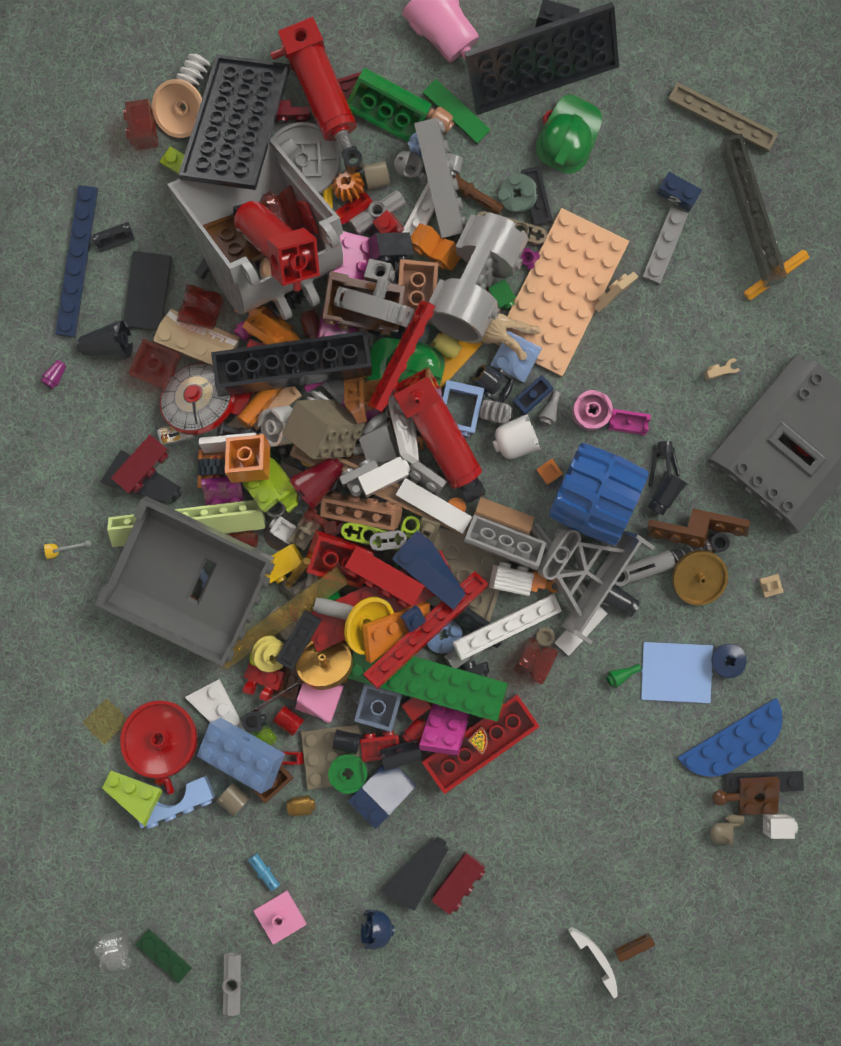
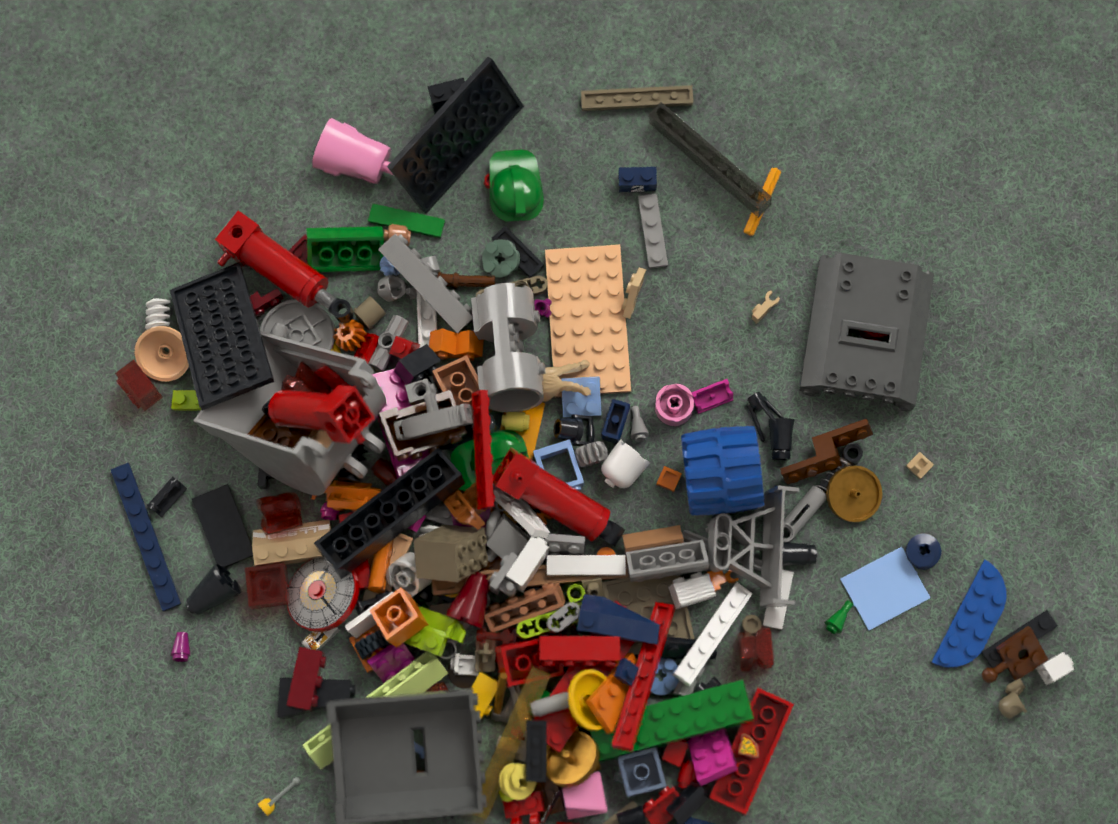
camera: 25 degrees left, 10 degrees down
(503, 294) = (539, 349): green brick -> none

